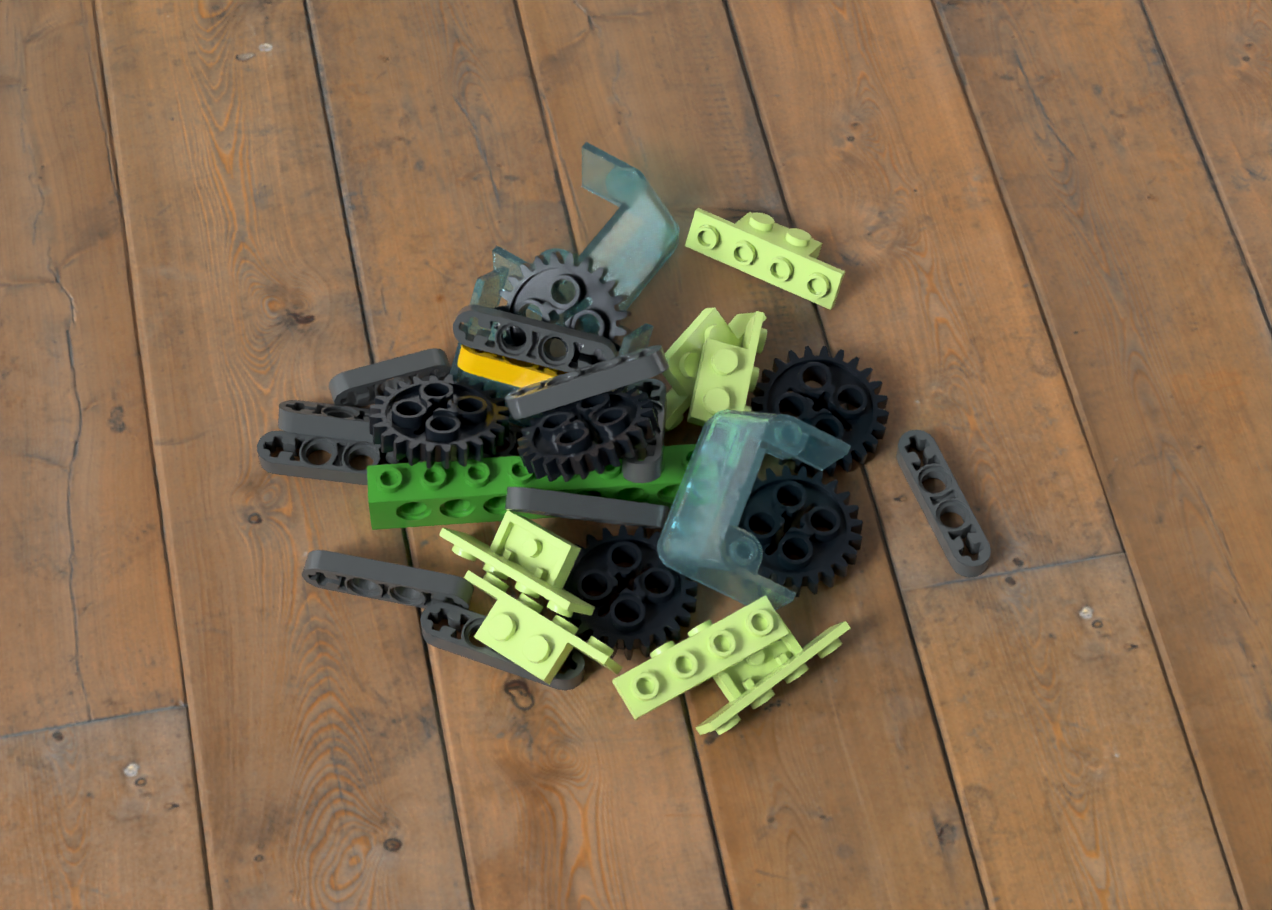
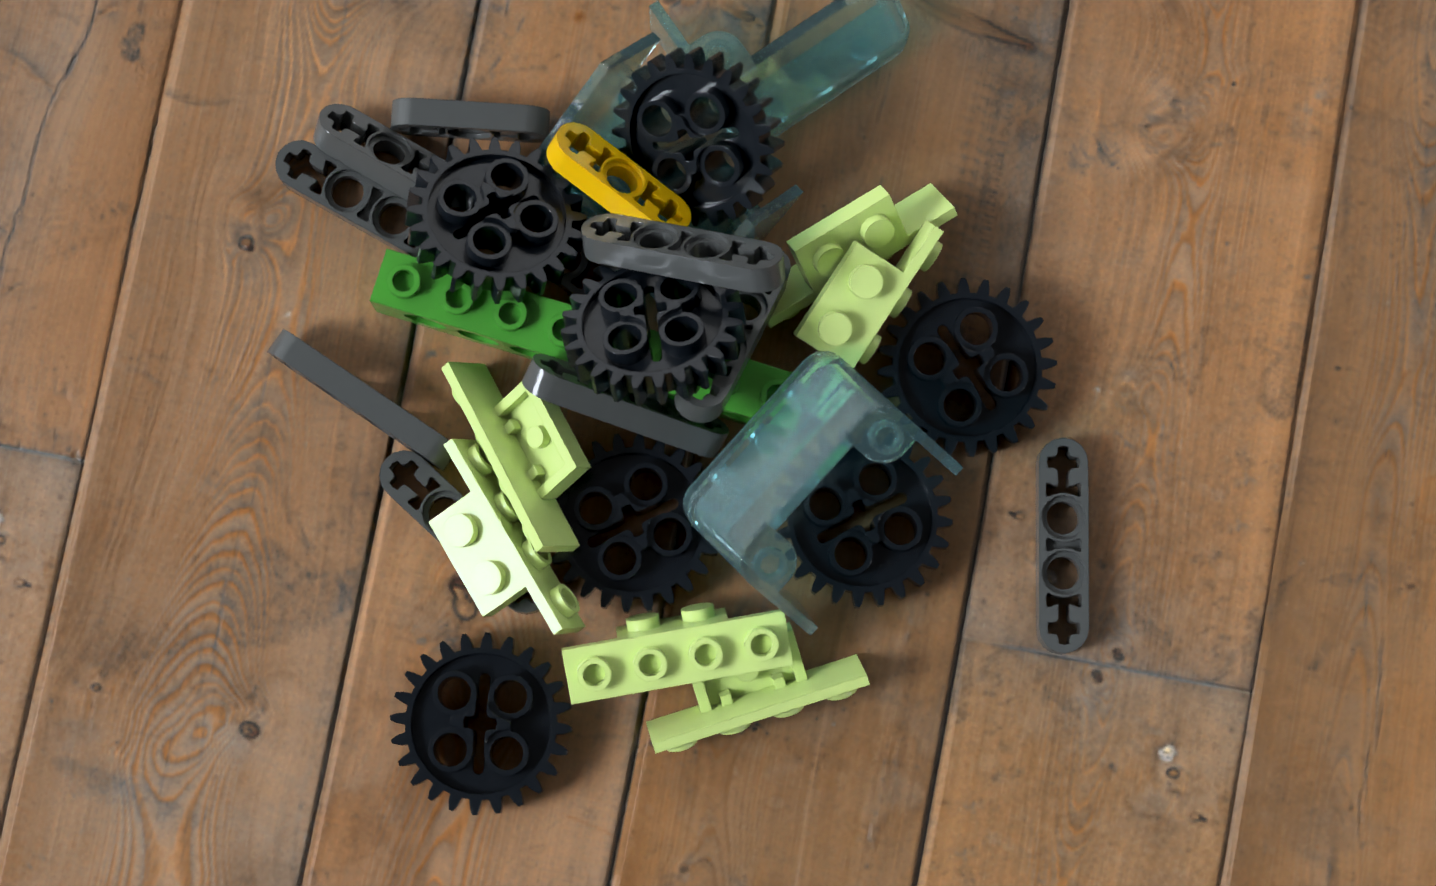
camera: 20 degrees right, 25 degrees up
(532, 776) = (430, 720): none -> black gear
(536, 333) = (652, 156): dark grey beam -> none
(768, 253) = (1006, 112): yellowish green bracket -> none

